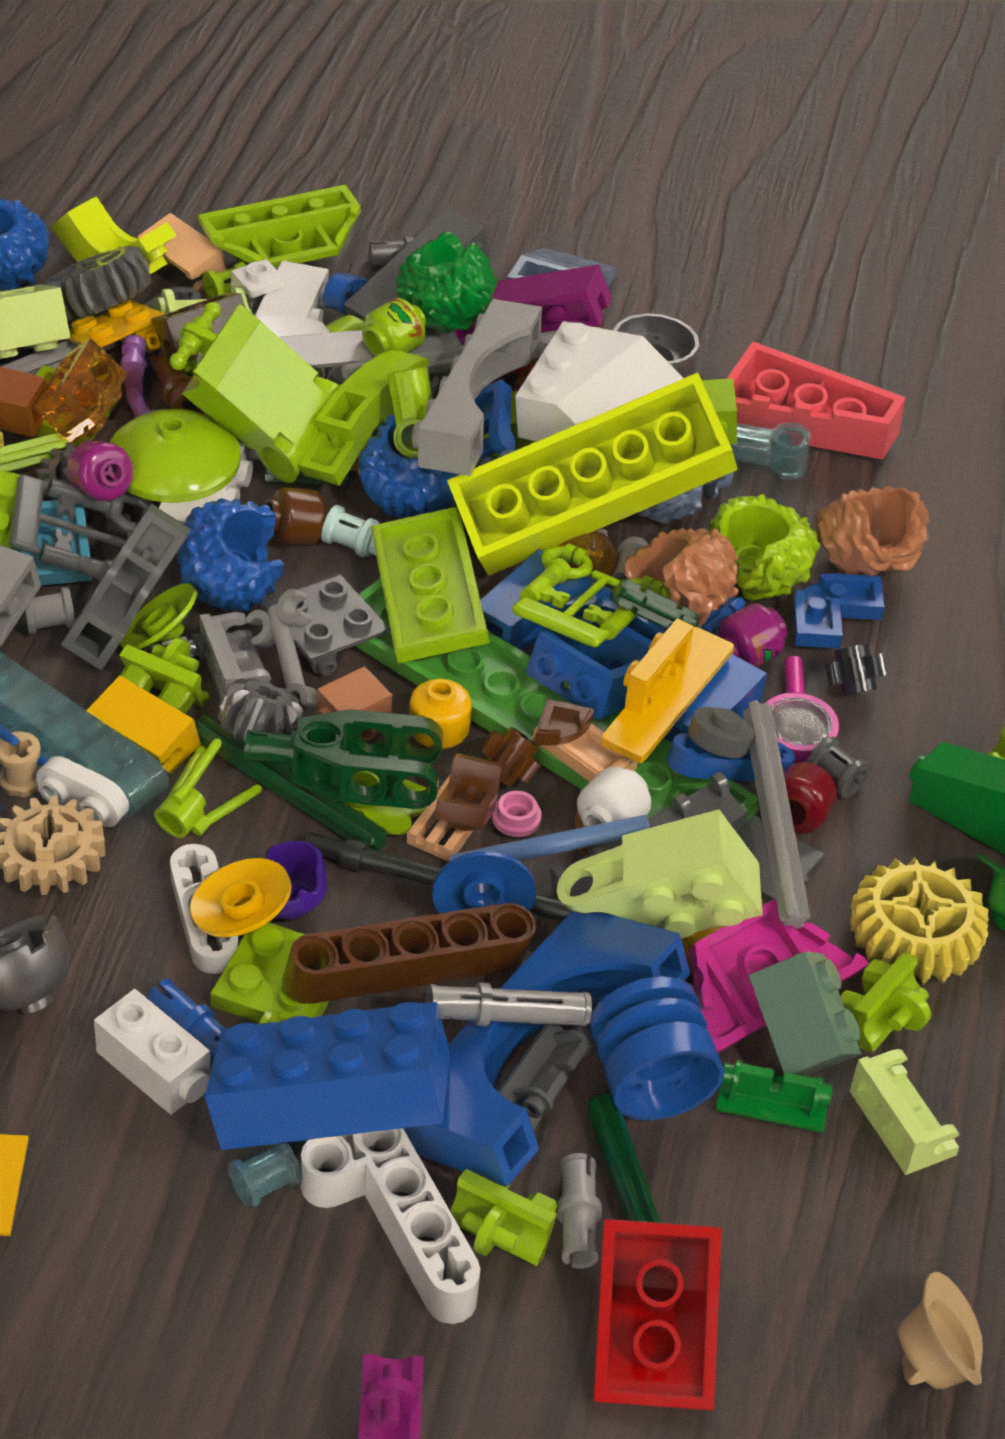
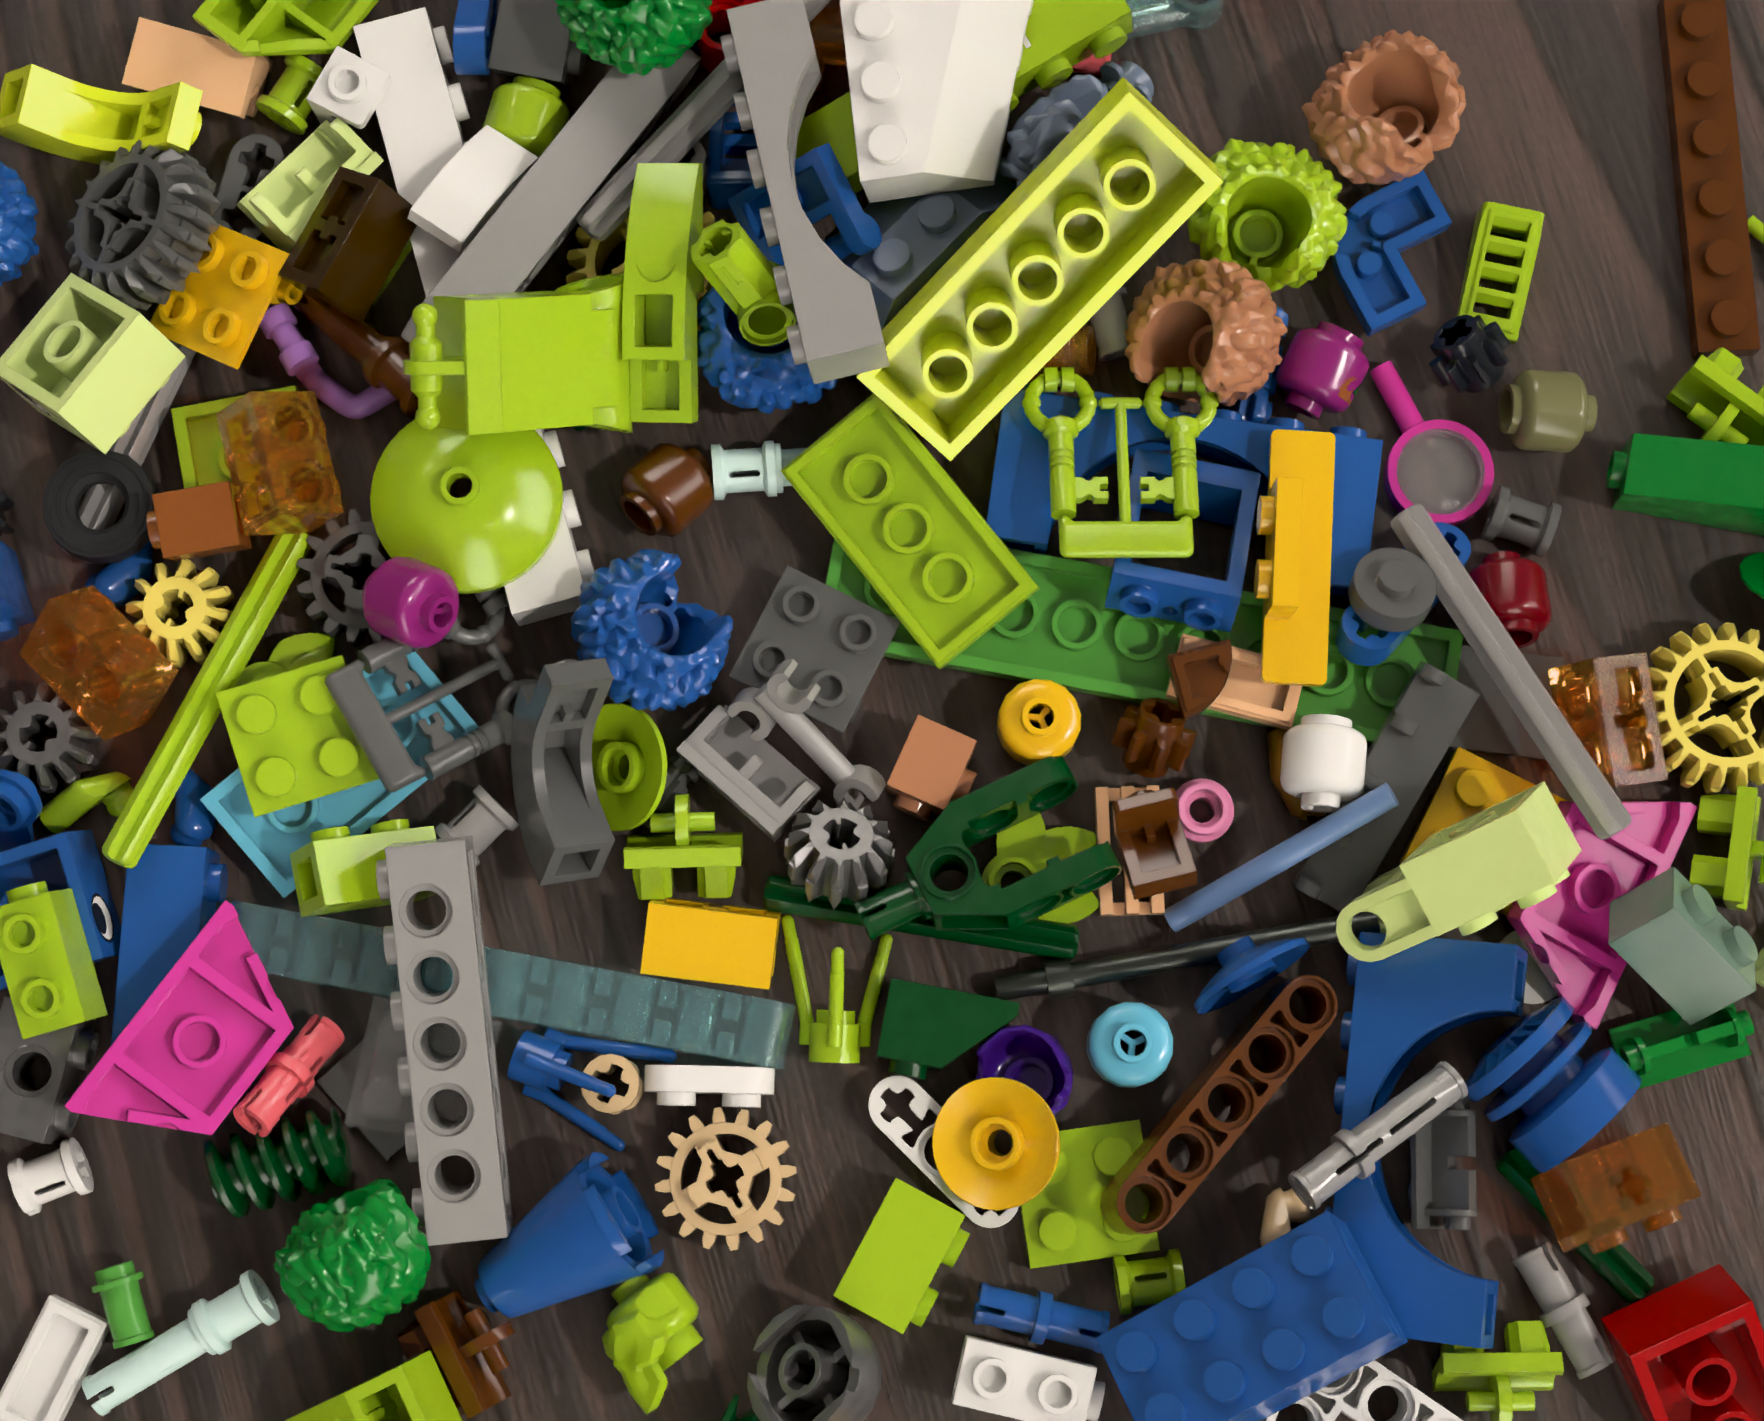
camera: 25 degrees left, 35 degrees up
(127, 939) = (901, 1256): none -> lime brick
(247, 824) = (936, 1025): none -> dark green slope
(372, 894) = (1106, 1052): none -> medium azure head
(394, 326) = (614, 119): lime head -> none
(651, 605) = (1218, 438): axle -> none
(665, 1137) = (1584, 1199): none -> clear orange brick
(835, 874) = (1613, 716): none -> clear orange brick
(890, 717) = (1546, 410): none -> olive head
(918, 627) = (1513, 222): none -> lime slope

